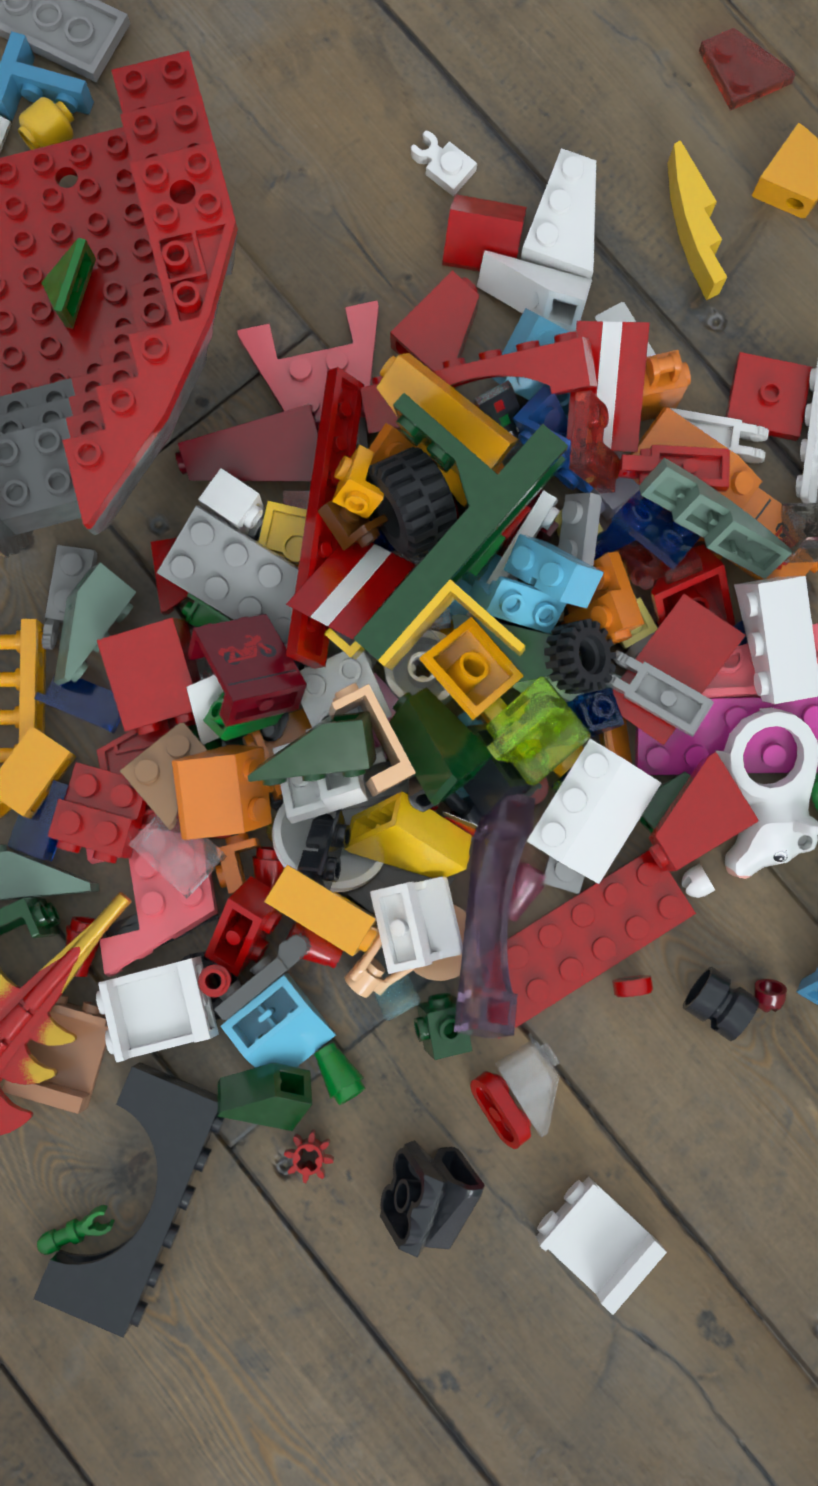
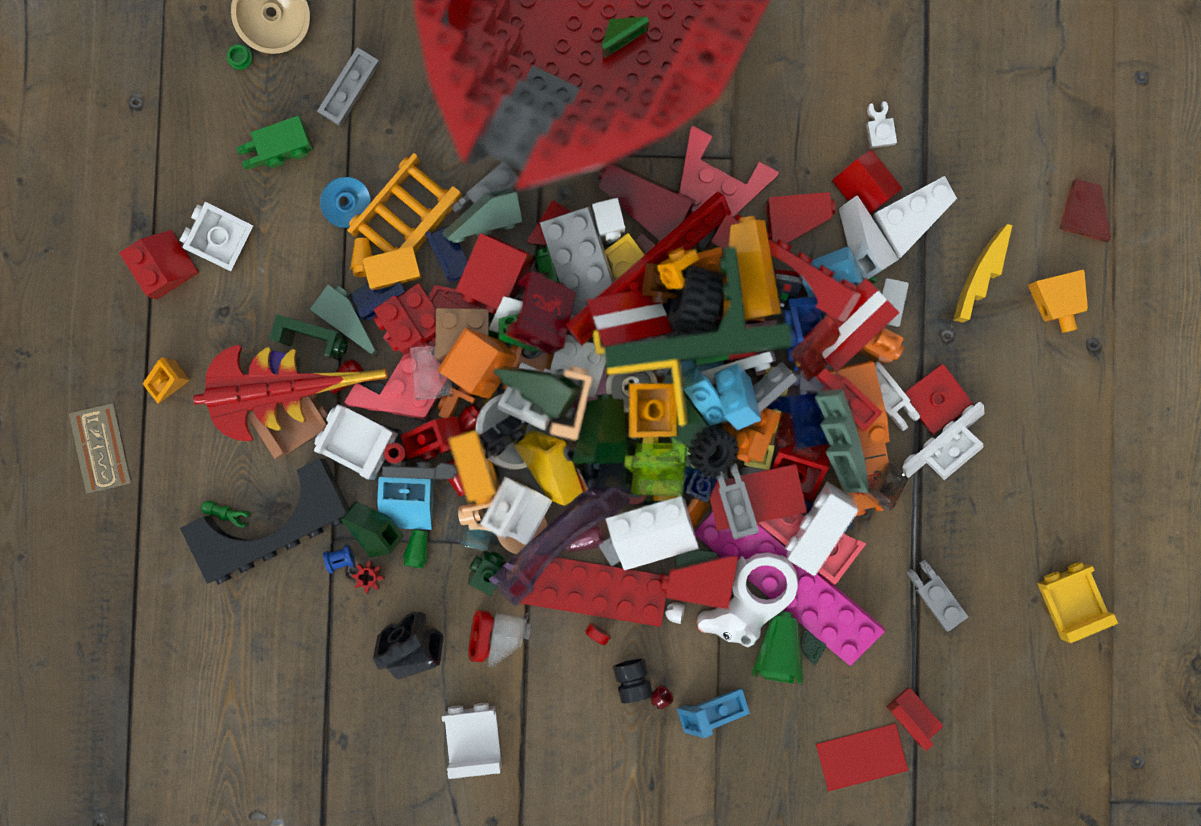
camera: 35 degrees right, 5 degrees up
(256, 1166) = (339, 559): none -> blue bush

